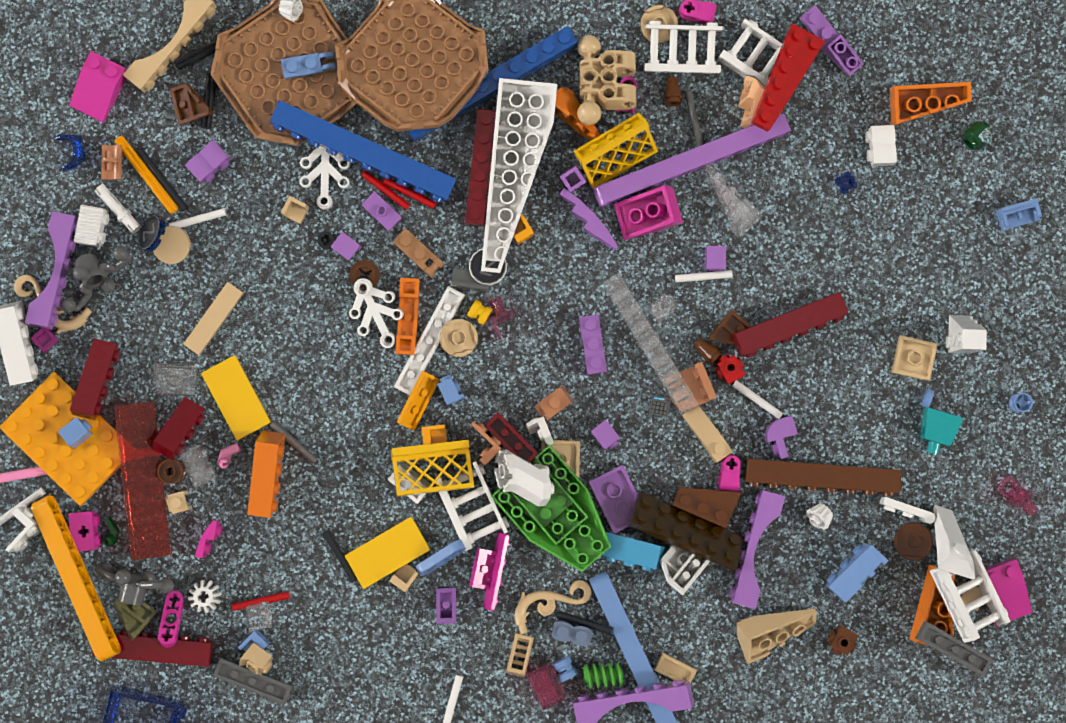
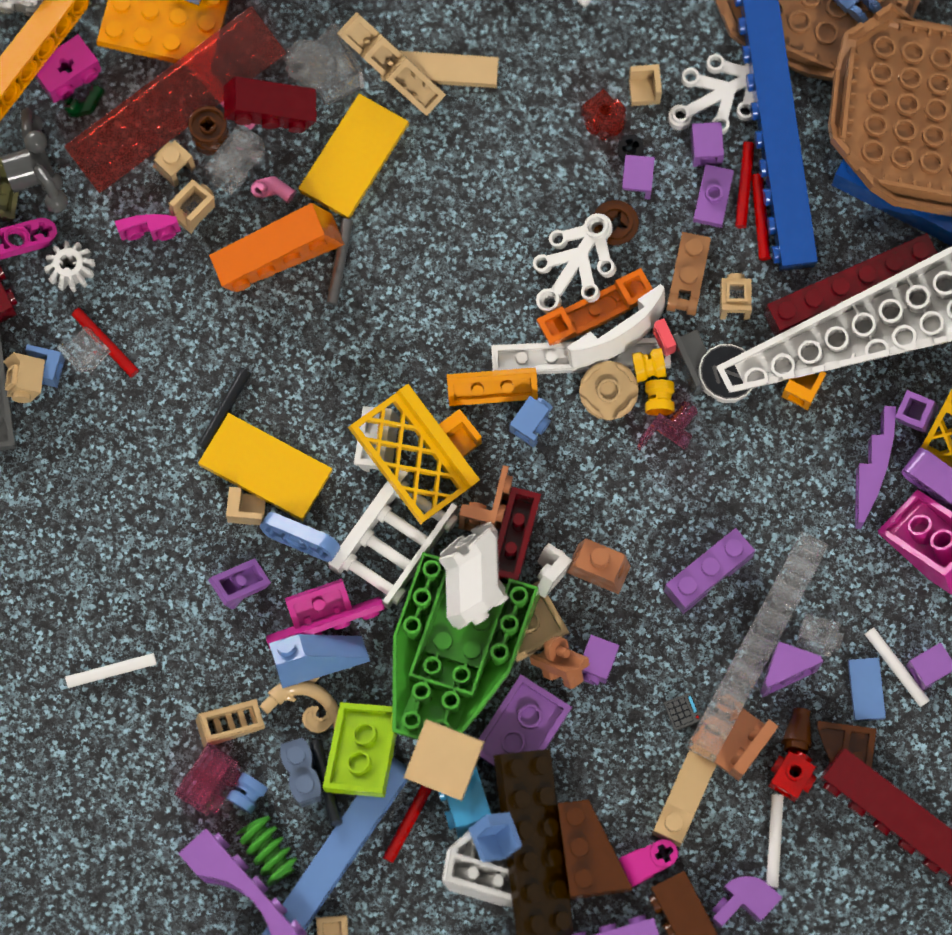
camera: 65 degrees right, 10 degrees down
(166, 393) = (306, 64): none -> clear gear
(196, 345) = (391, 63): none -> tan slope
(210, 506) = (192, 205): none -> tan window
(293, 241) = (603, 115): none -> clear red brick
(350, 197) = (707, 144): none -> medium lavender panel
(432, 334) = (592, 350): none -> white slope
(447, 235) = (735, 295): none -> tan window
(448, 289) = (664, 337): none -> coral tile
(459, 307) = (649, 365): none -> yellow wheel
(512, 587) = (313, 656): none -> medium blue slope
(580, 594) = (360, 750): none -> lime plate
(596, 456) = (560, 662): none -> nougat hips
(615, 554) = (444, 759): none -> tan tile
(630, 588) = (407, 824): none -> red bar
(672, 336) = (789, 666): none -> medium lavender slope
(673, 551) = (495, 837): none -> medium blue panel
(705, 300) = (866, 689): none -> medium blue tile

